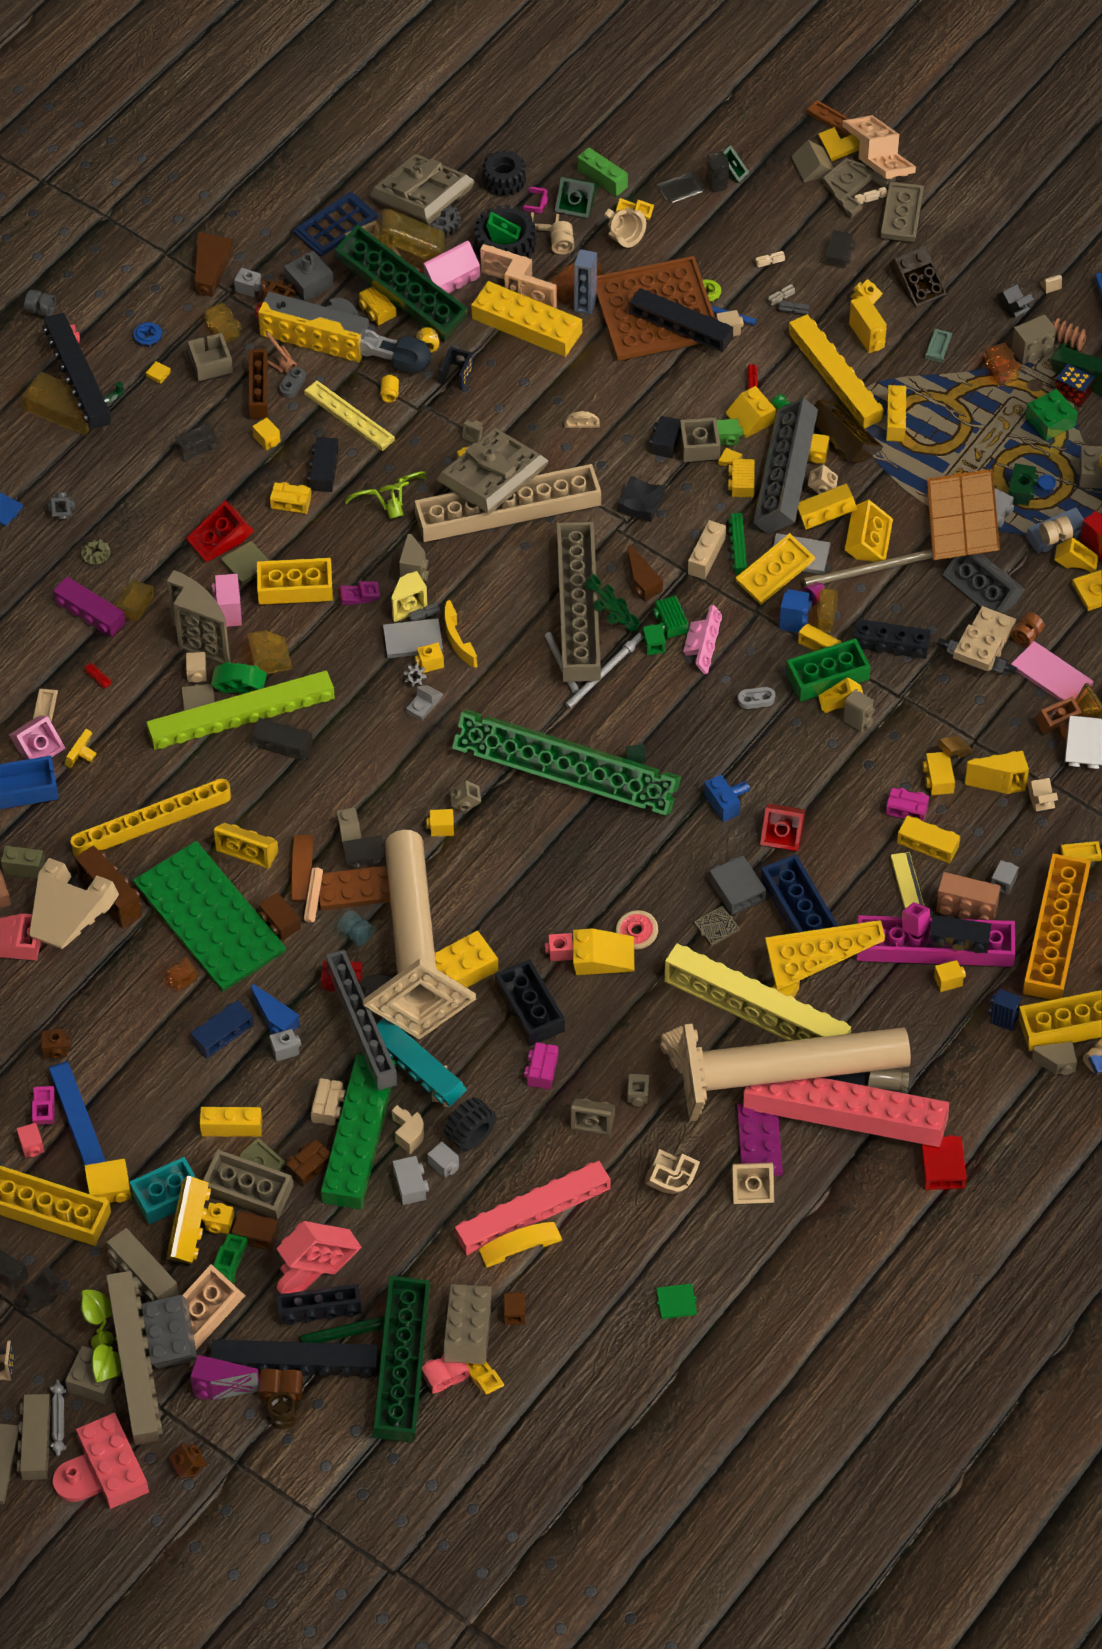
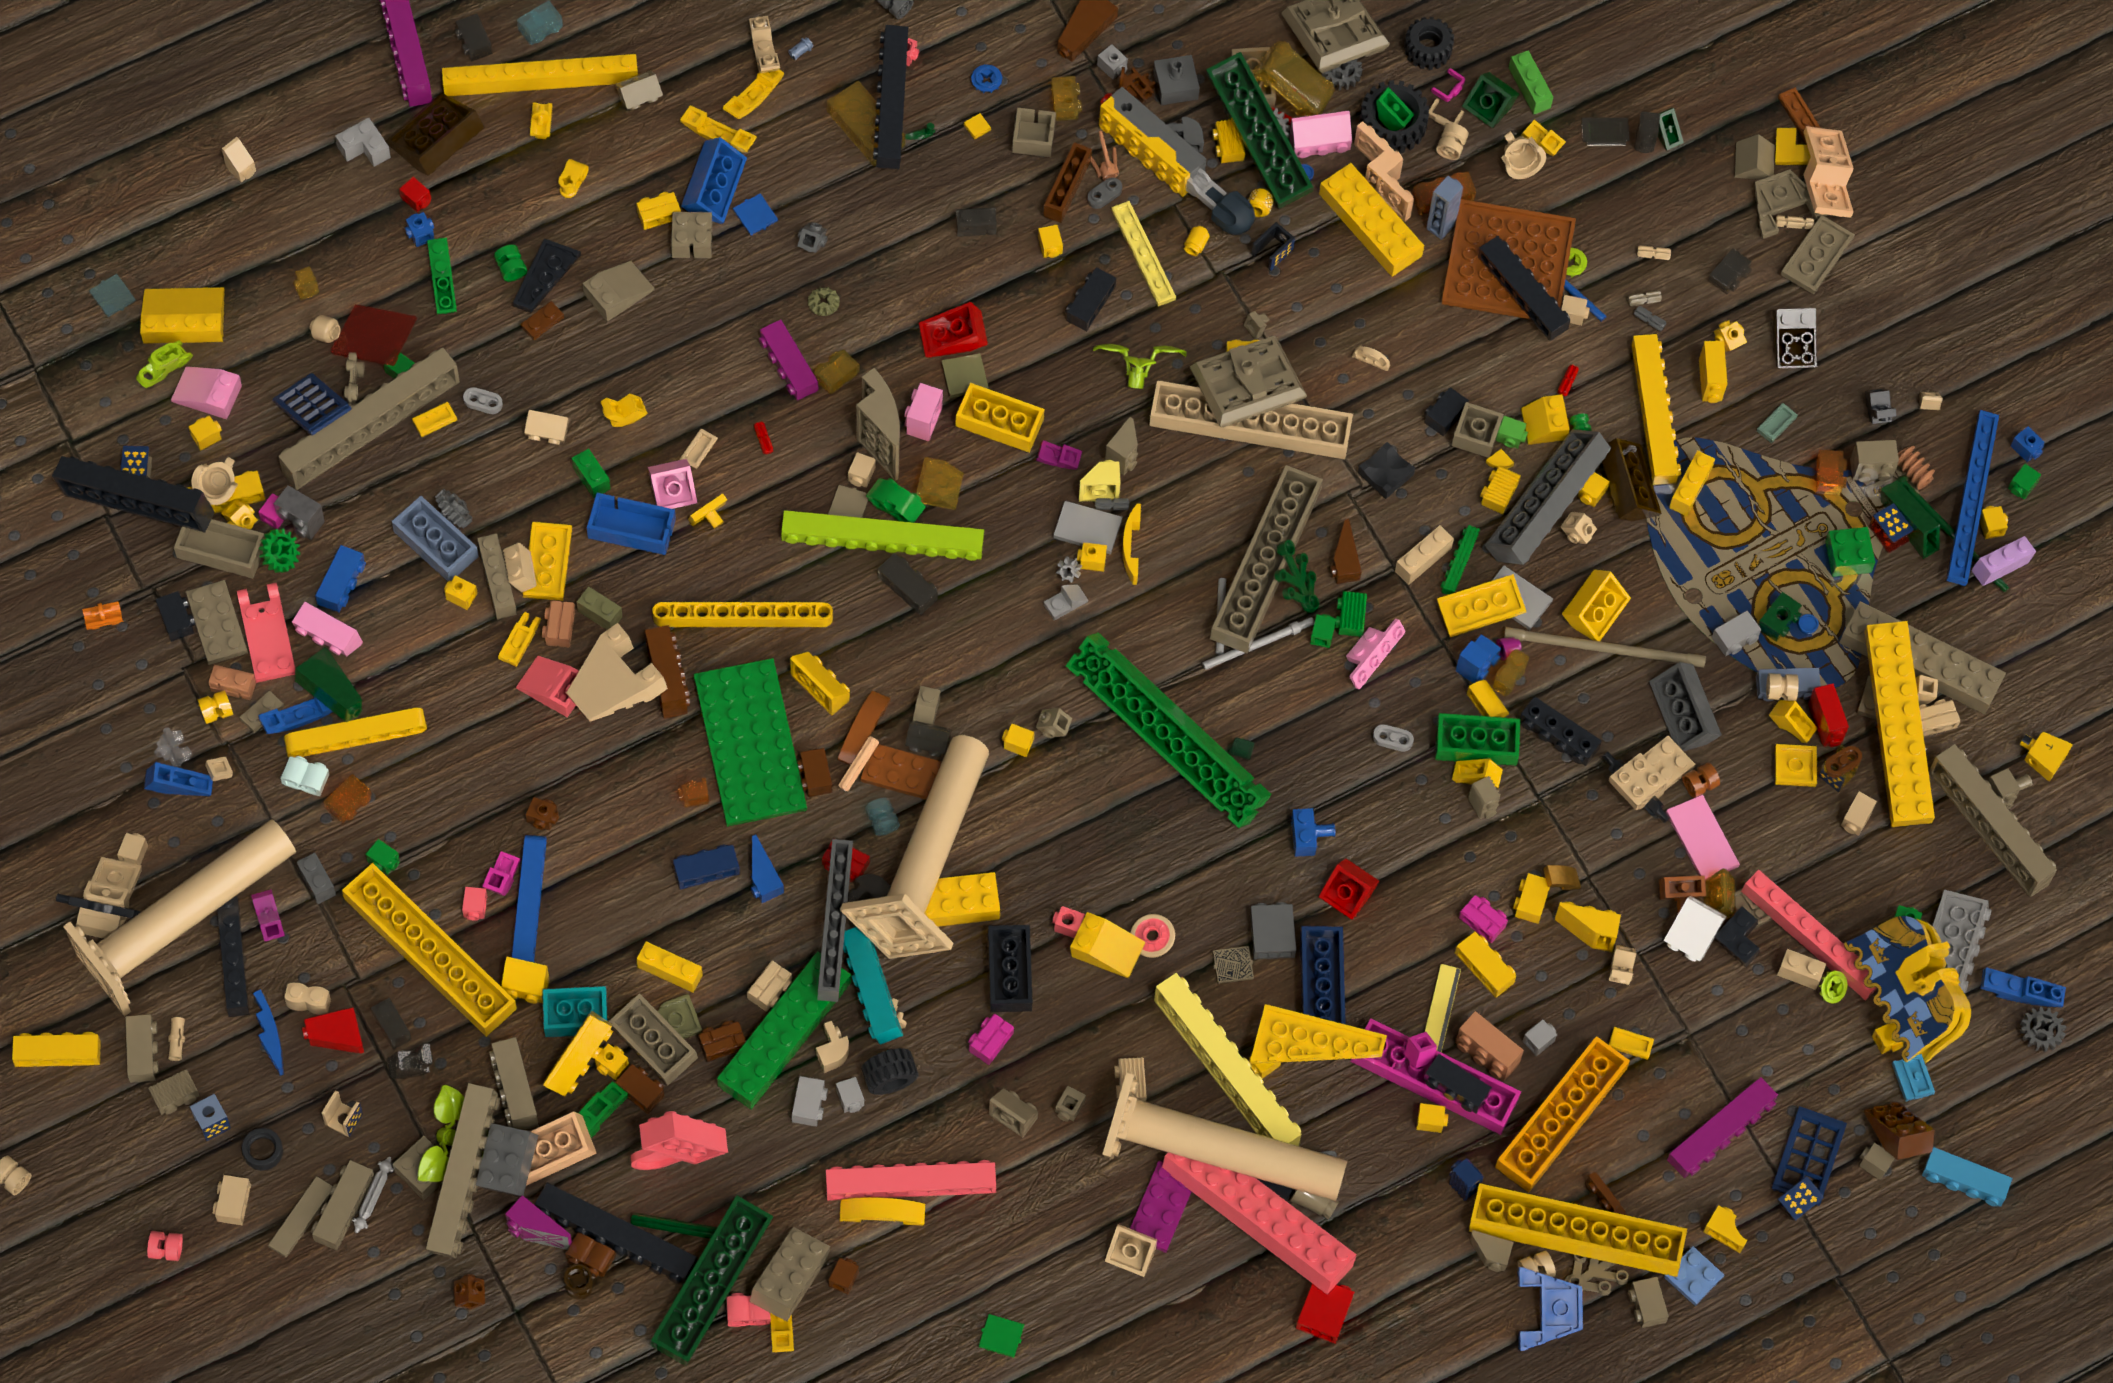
camera: 20 degrees right, 10 degrees up
(104, 1467) = (392, 1263): coral brick -> none
(285, 1044) = (758, 909): light grey brick -> none
(290, 497) = (1041, 322): yellow brick -> none
(312, 242) = (1199, 39): dark blue piece -> none
(319, 1304) = (662, 1190): black brick -> none
(671, 1173) = (1057, 1205): tan brick -> none
(826, 506) = (1566, 559): yellow brick -> none
(963, 514) = (1699, 627): clear orange piece -> none

